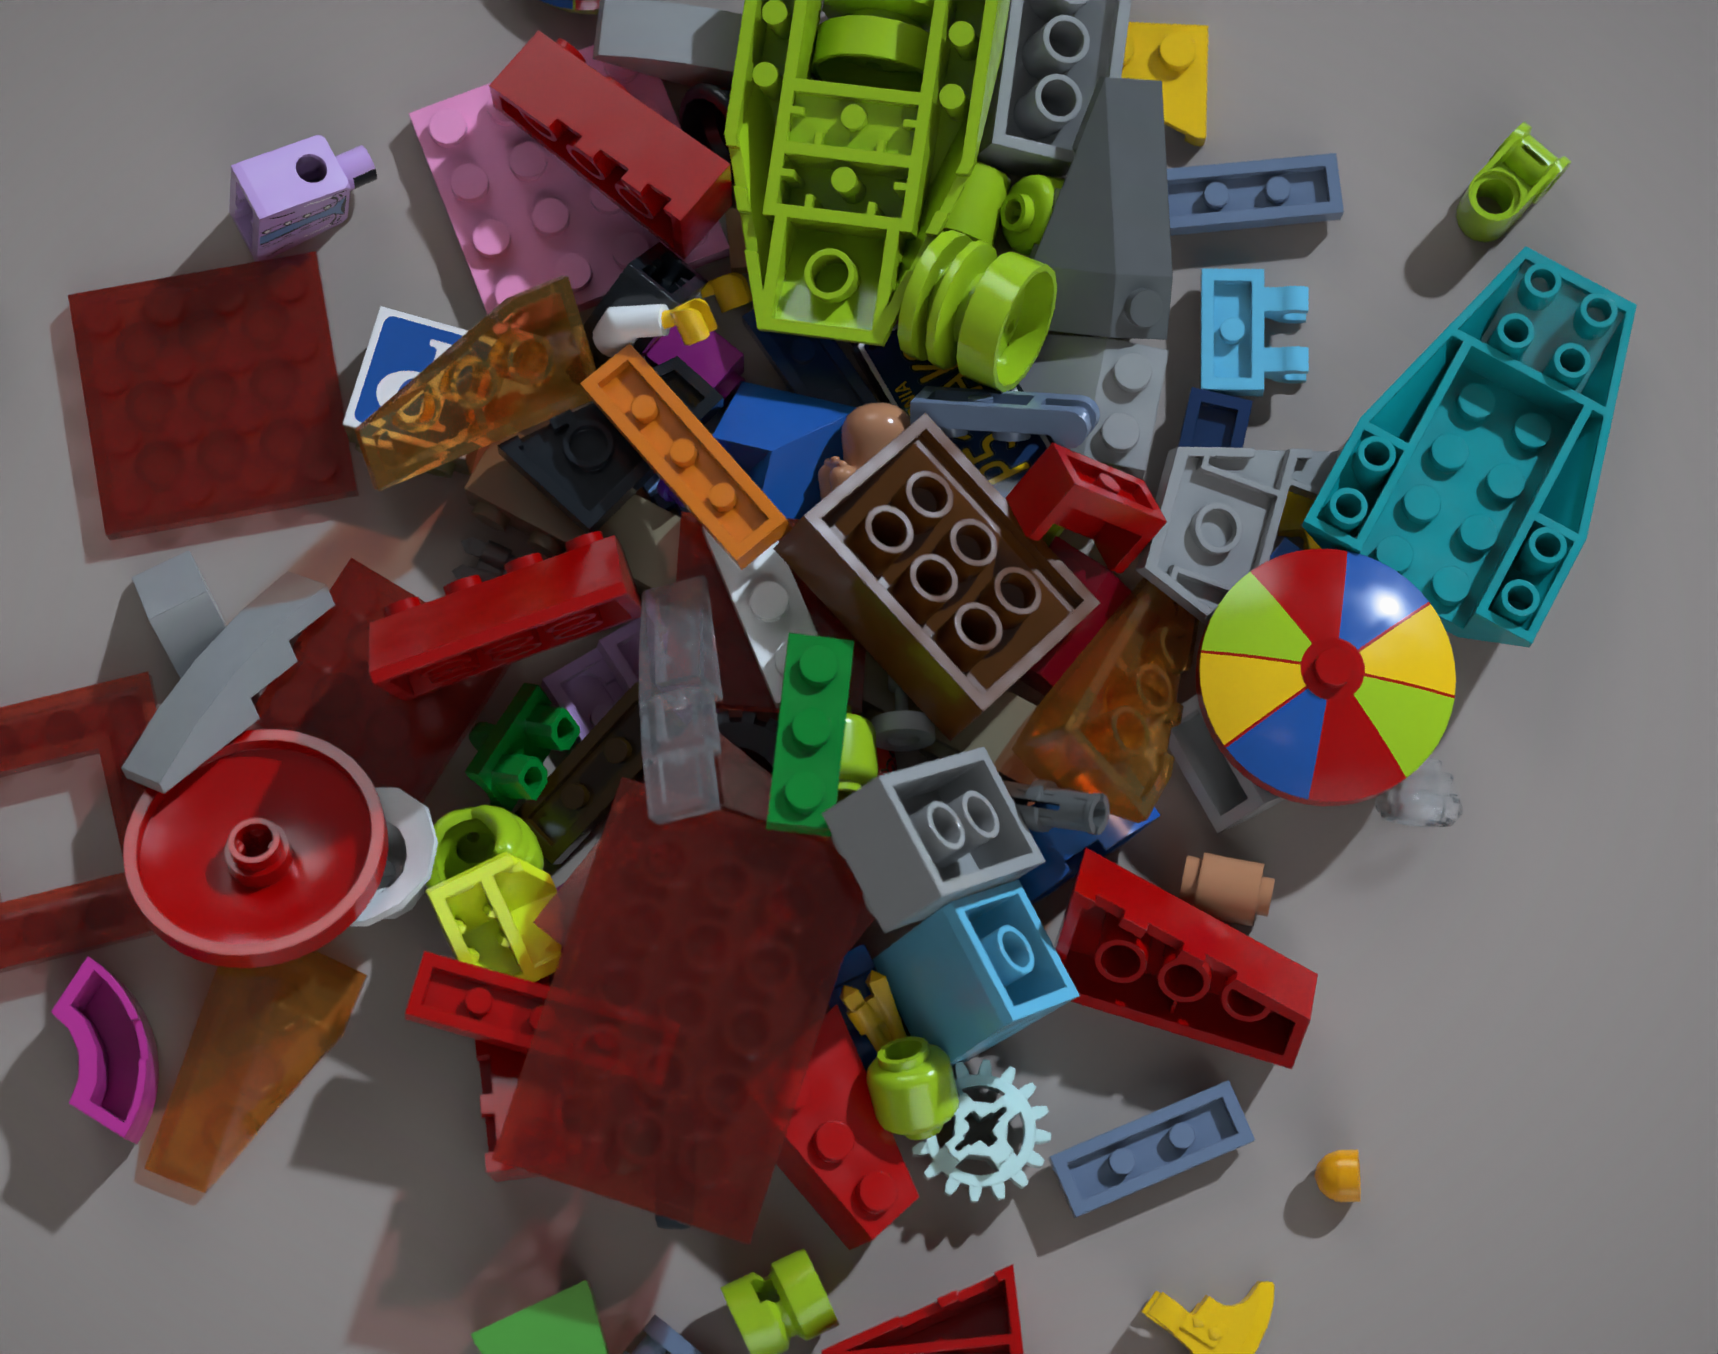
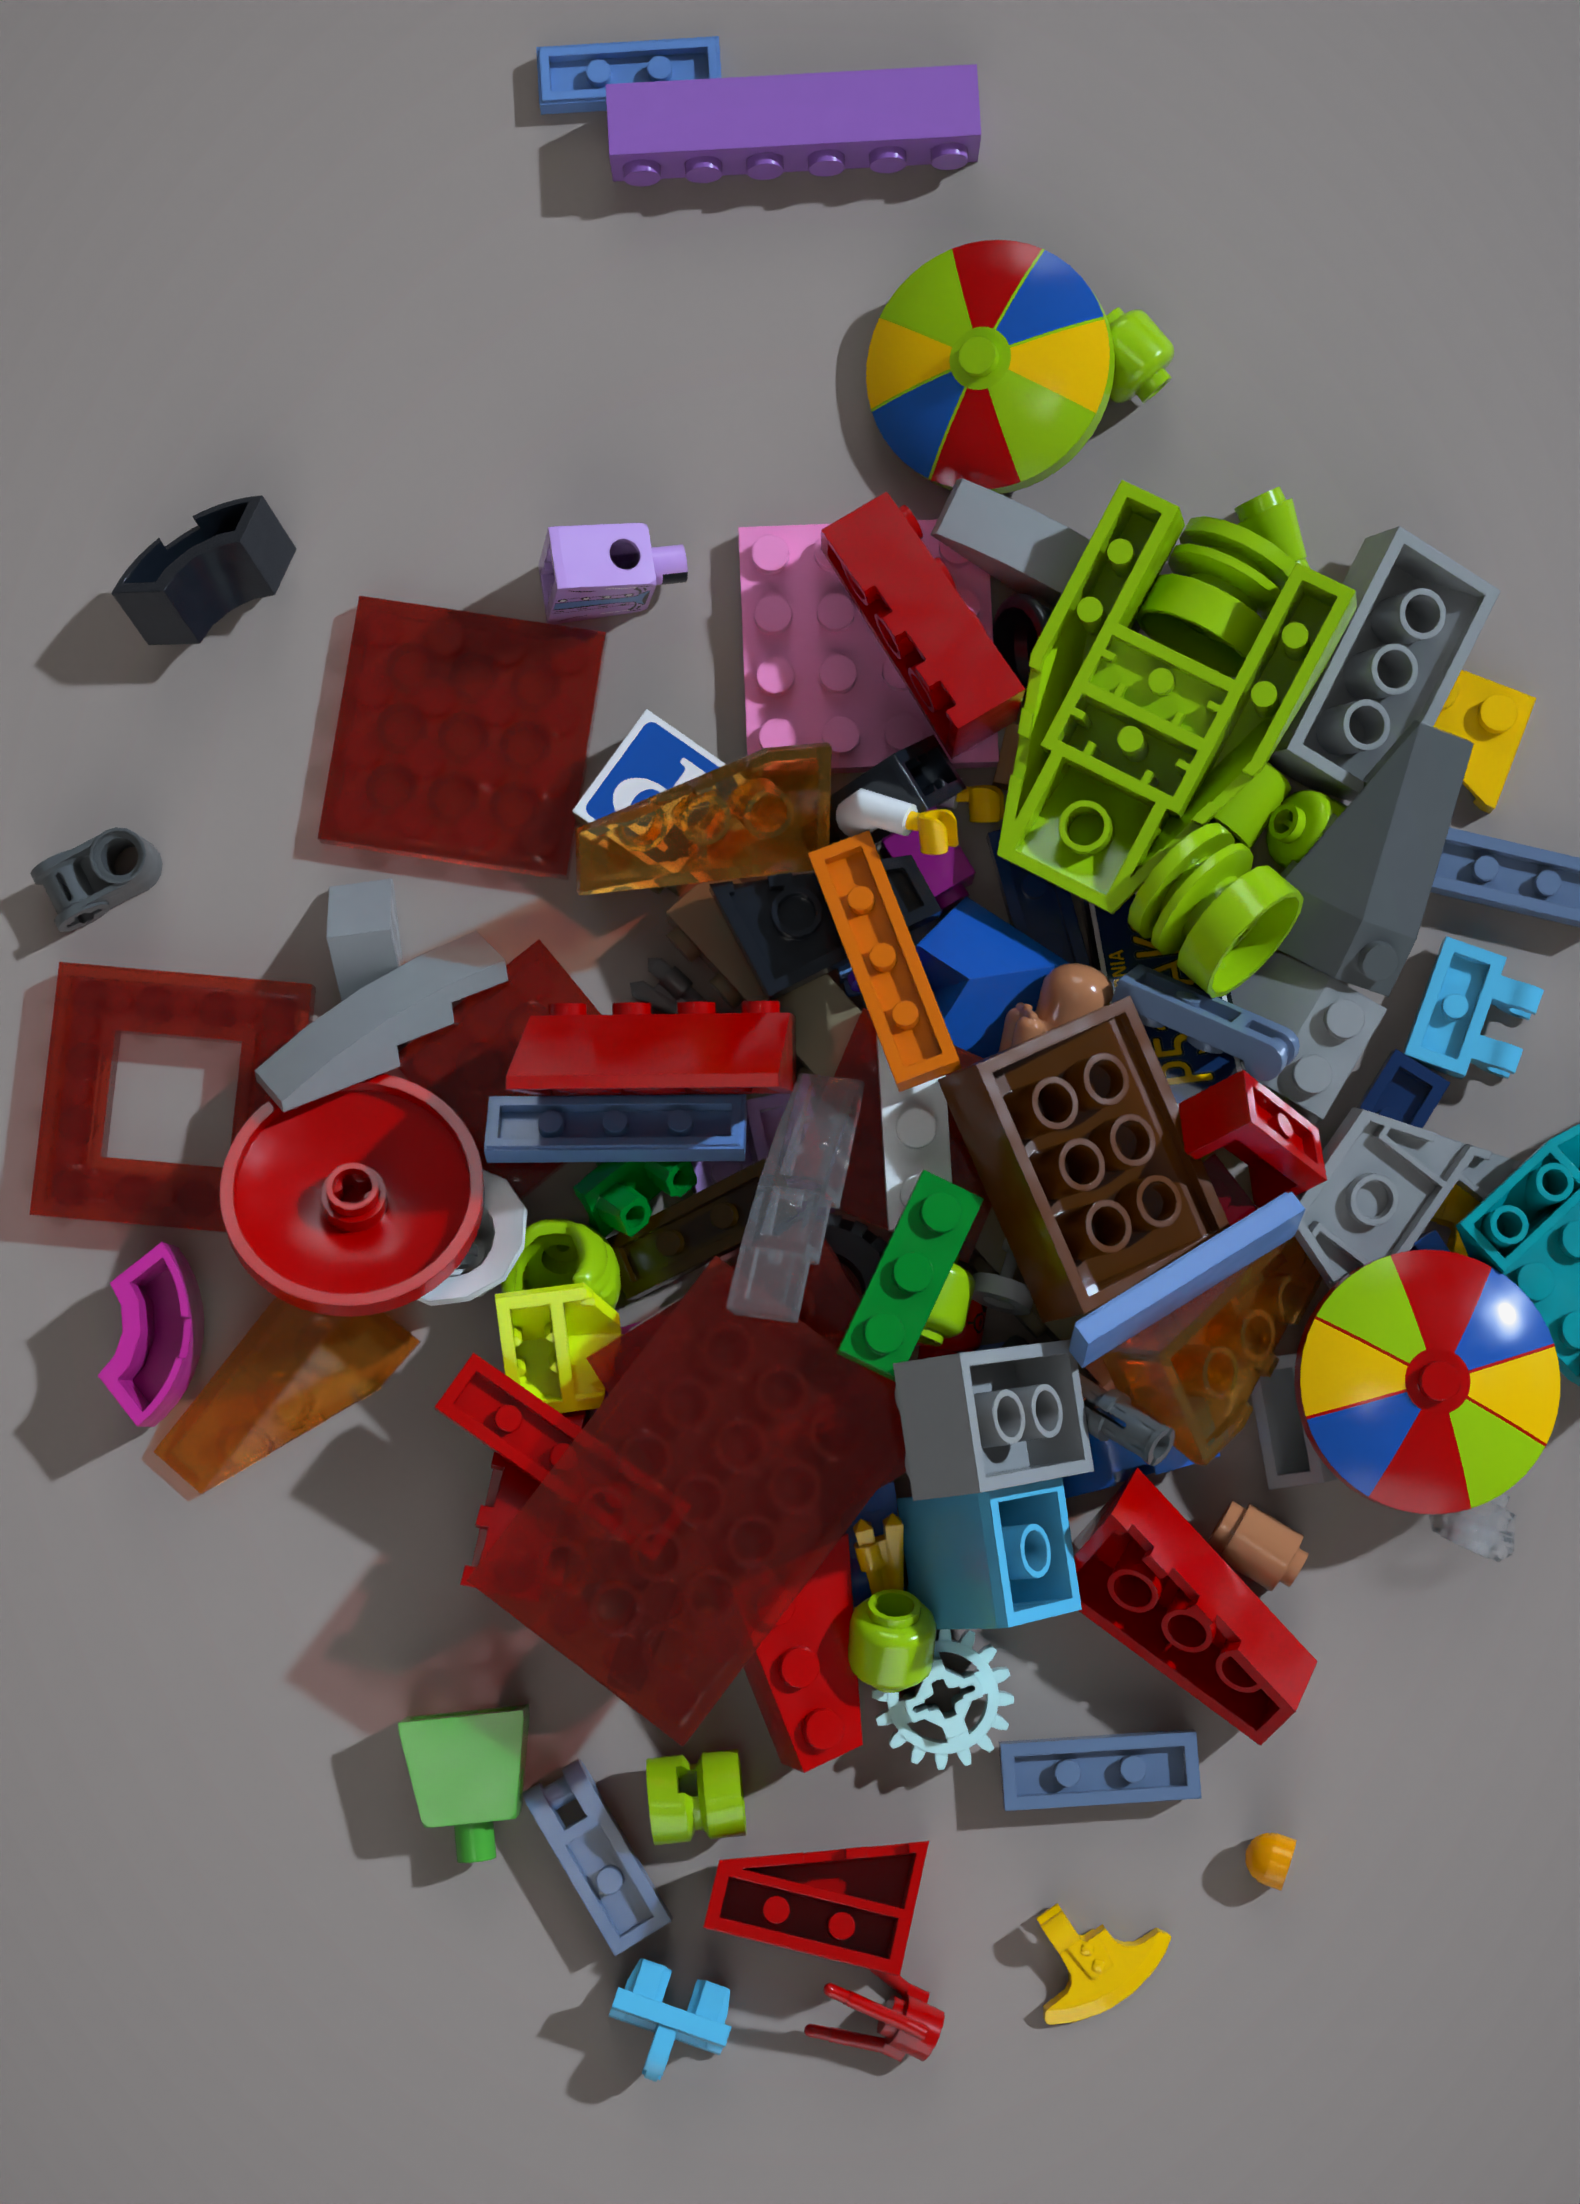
camera: 25 degrees right, 5 degrees up
(486, 704) = (616, 1128): none -> medium blue tile
(1067, 654) = (1185, 1278): none -> medium blue tile

